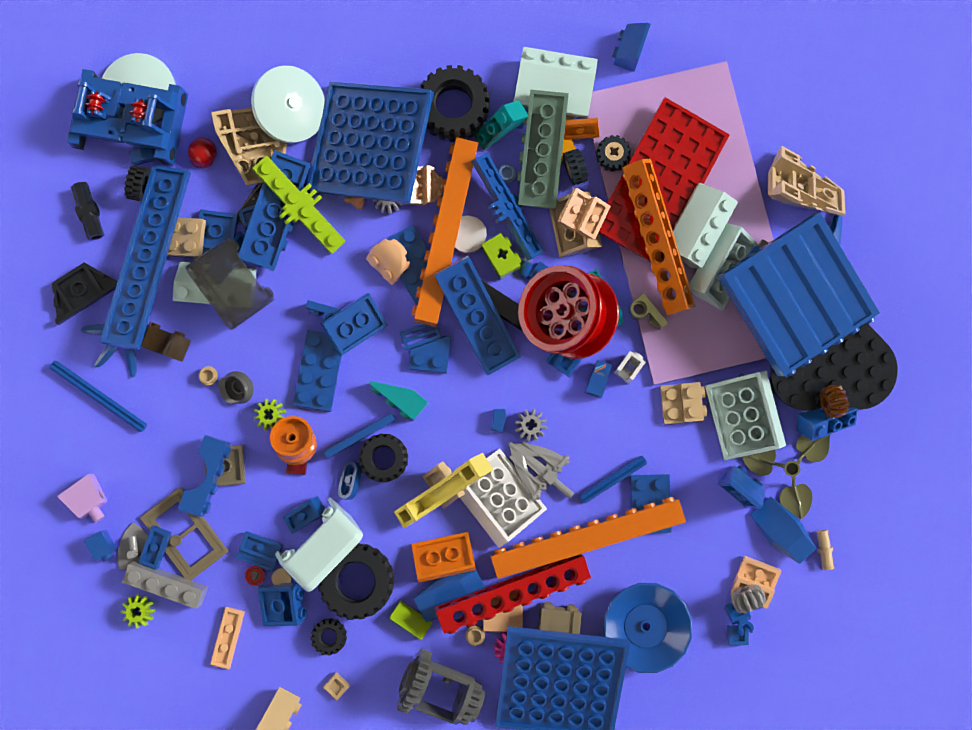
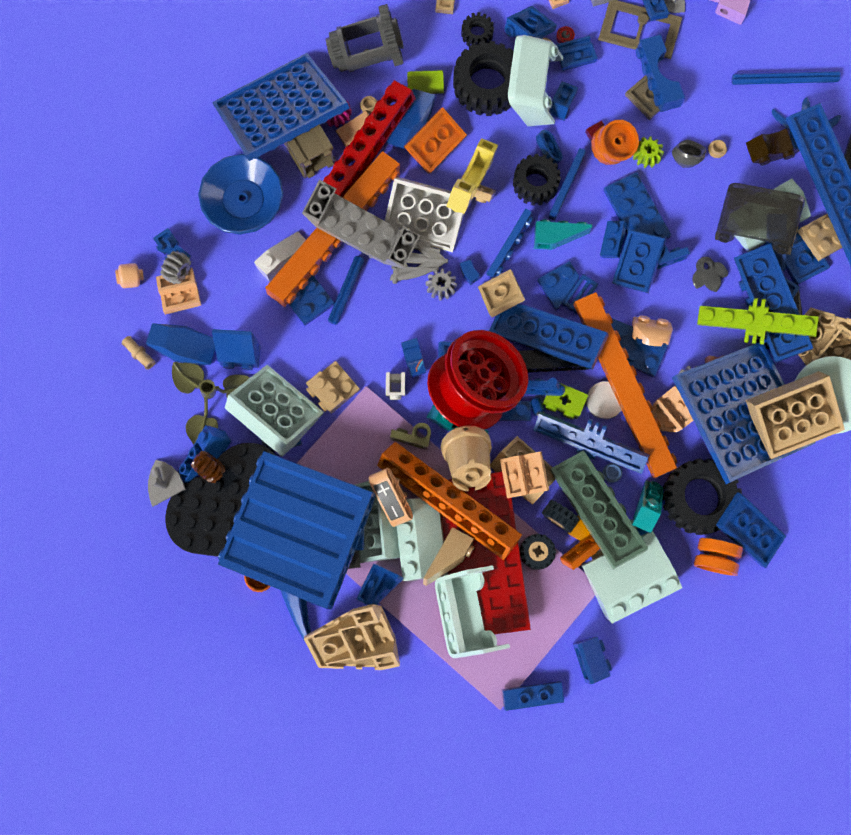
camera: 150 degrees right, 5 degrees down
(302, 272) = (709, 277): none -> dark grey plate
(334, 106) = (796, 414): none -> tan slope
(358, 360) = (613, 239): none -> blue plate
(437, 50) = (751, 530): none -> blue tile
(442, 417) = (507, 249): none -> blue wing
(477, 49) = (718, 556): none -> orange wheel
(488, 379) = (501, 293): none -> tan plate
(510, 268) = (542, 387): none -> blue plate
(568, 517) = (359, 227): none -> light grey slope
(619, 258) = (468, 456): none -> tan piece
(646, 549) = (277, 256): none -> white slope
(684, 194) = (450, 555): none -> tan slope
(694, 53) = (532, 695): none -> blue plate
(705, 269) = (391, 497): none -> beam
(712, 138) = (462, 614): none -> light aqua windscreen
(758, 214) = (378, 585): none -> blue wing
(790, 624) = (129, 275): none -> light nougat head
(874, 422) = (163, 482): none -> light grey shield

